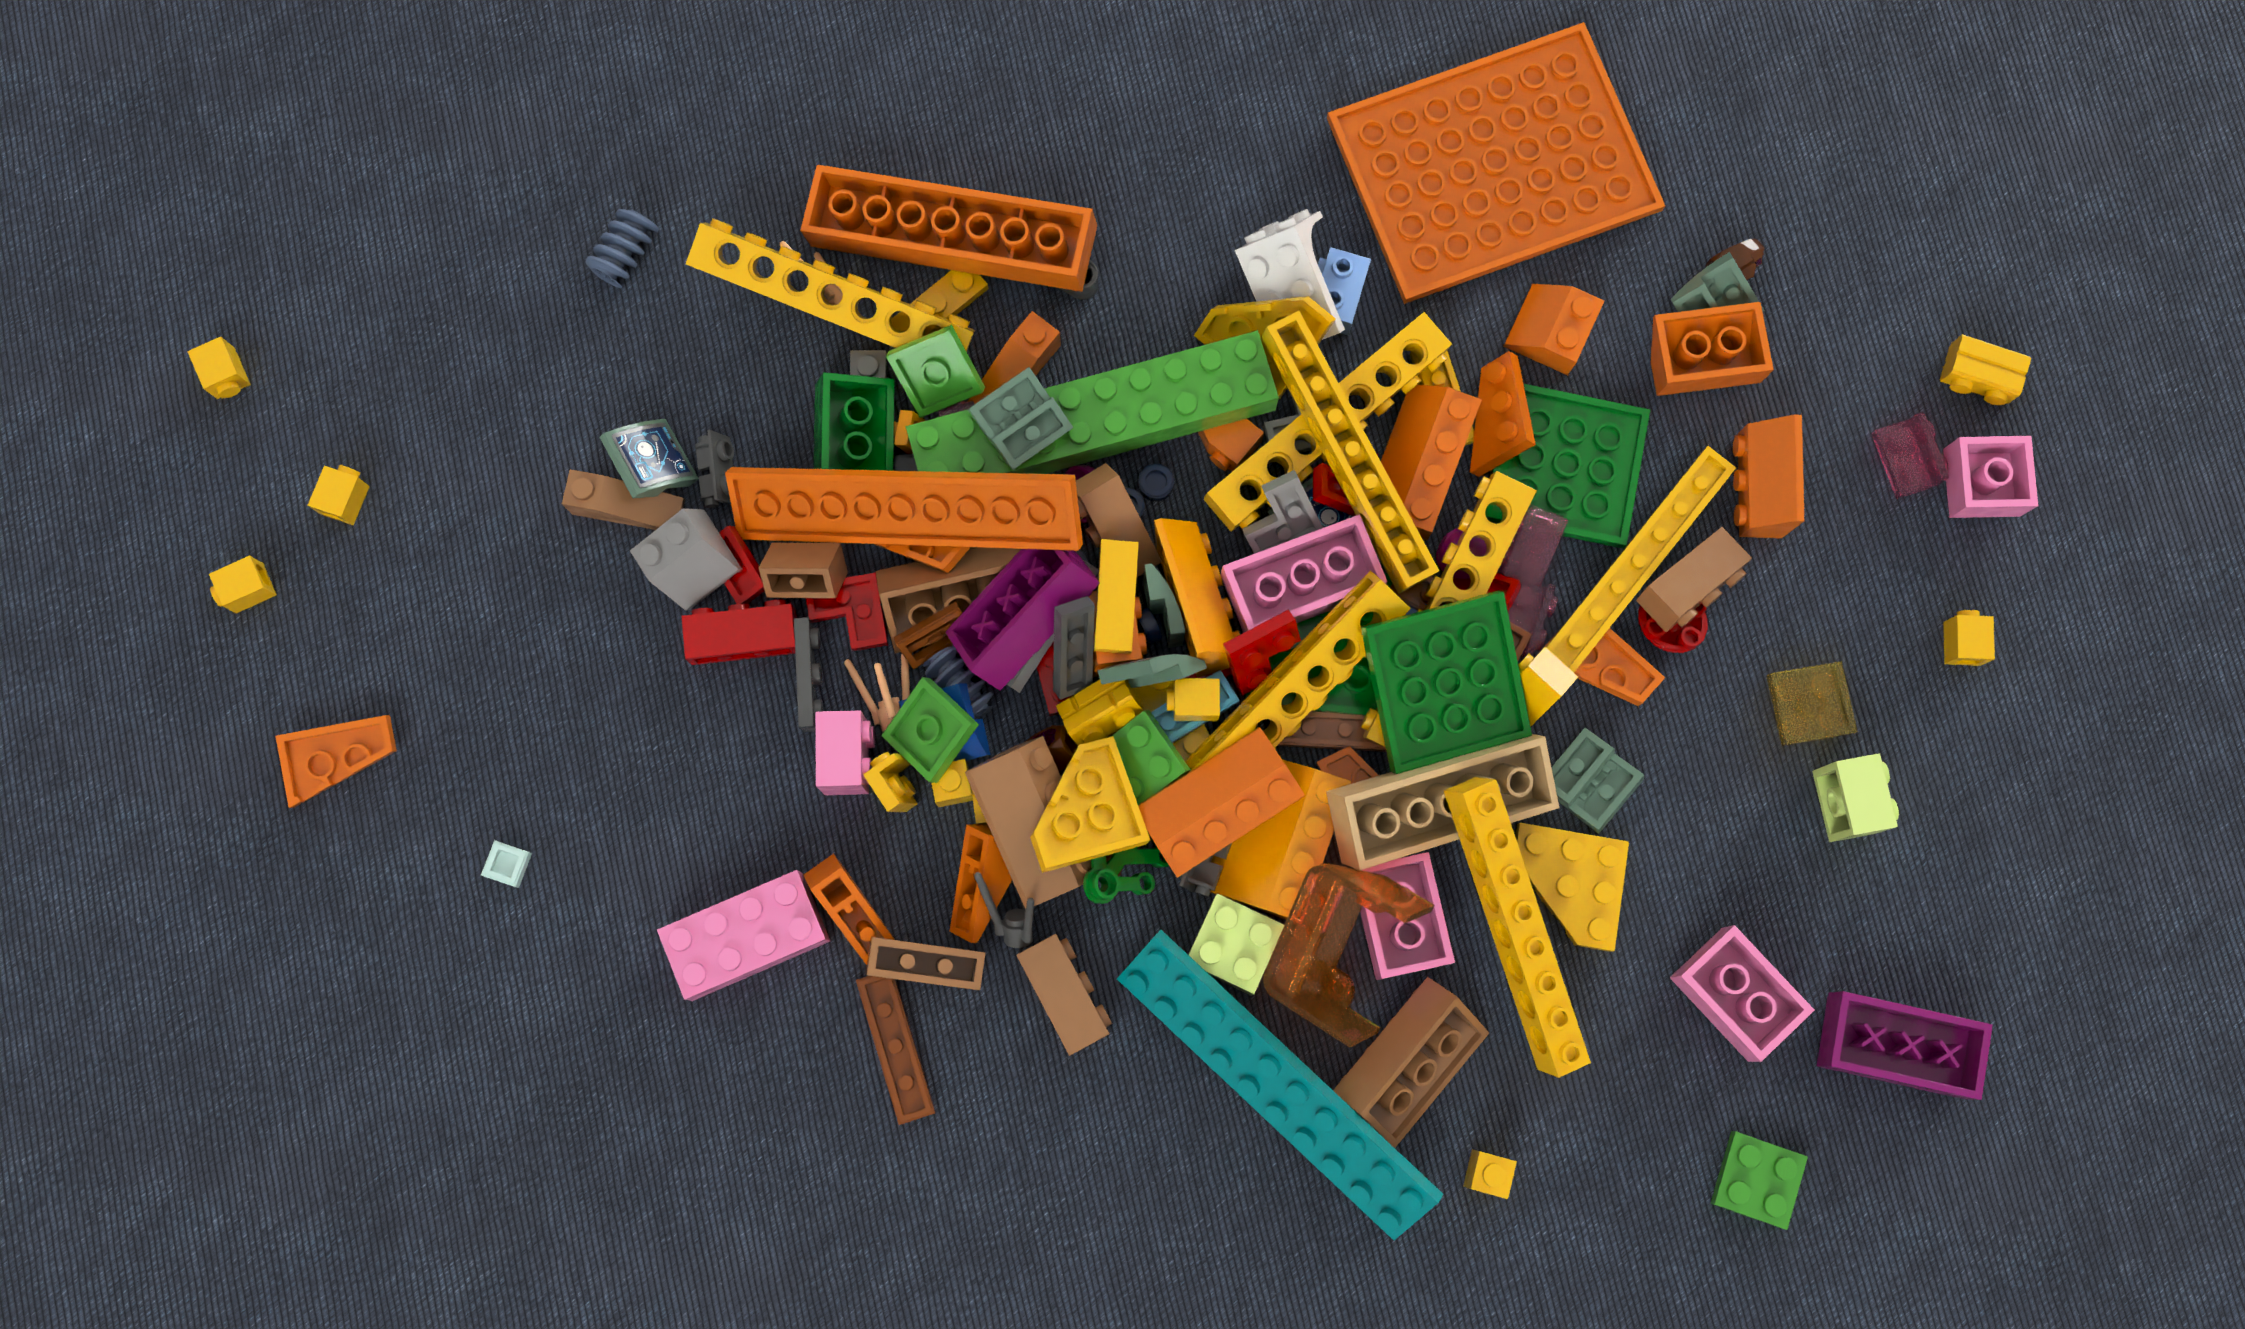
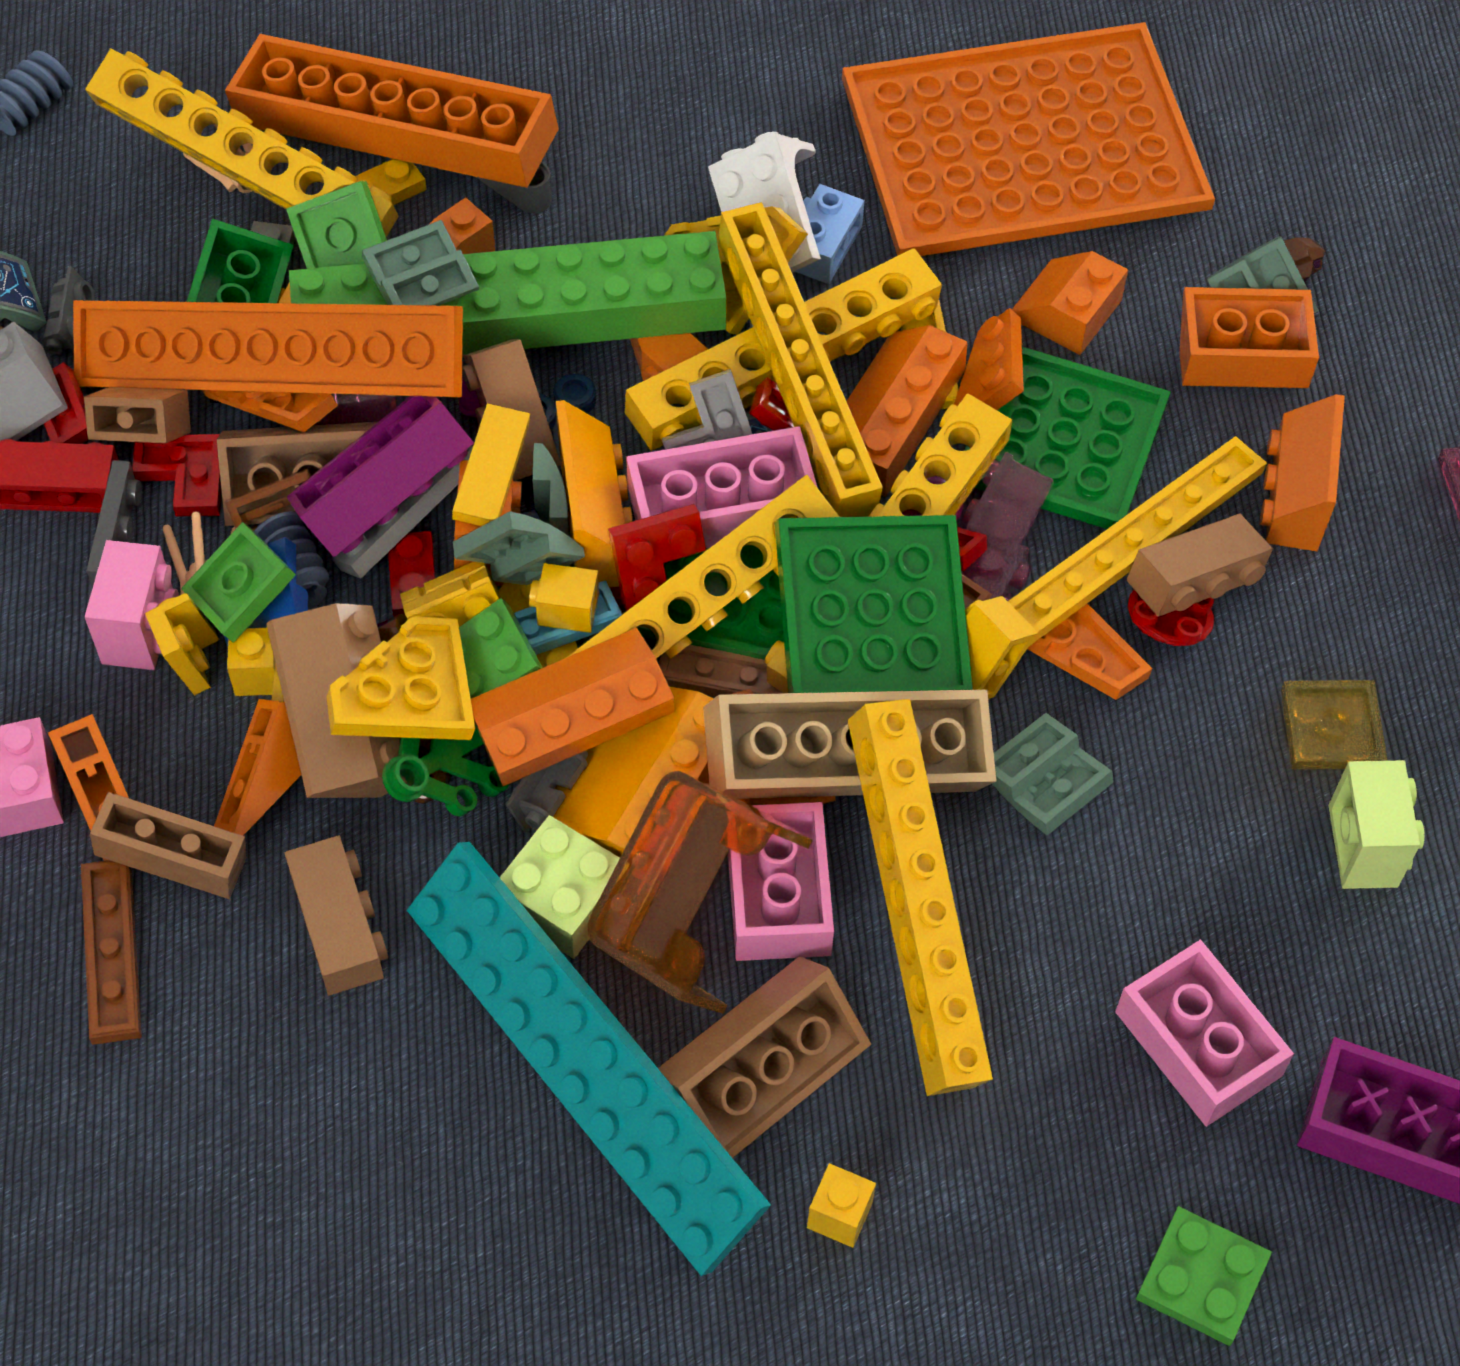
camera: 10 degrees right, 20 degrees down
(1016, 925) = (297, 825): dark grey plant -> none
(1073, 647) = (429, 516): dark grey plate -> none
(1577, 880) = (1010, 882): yellow plate -> none

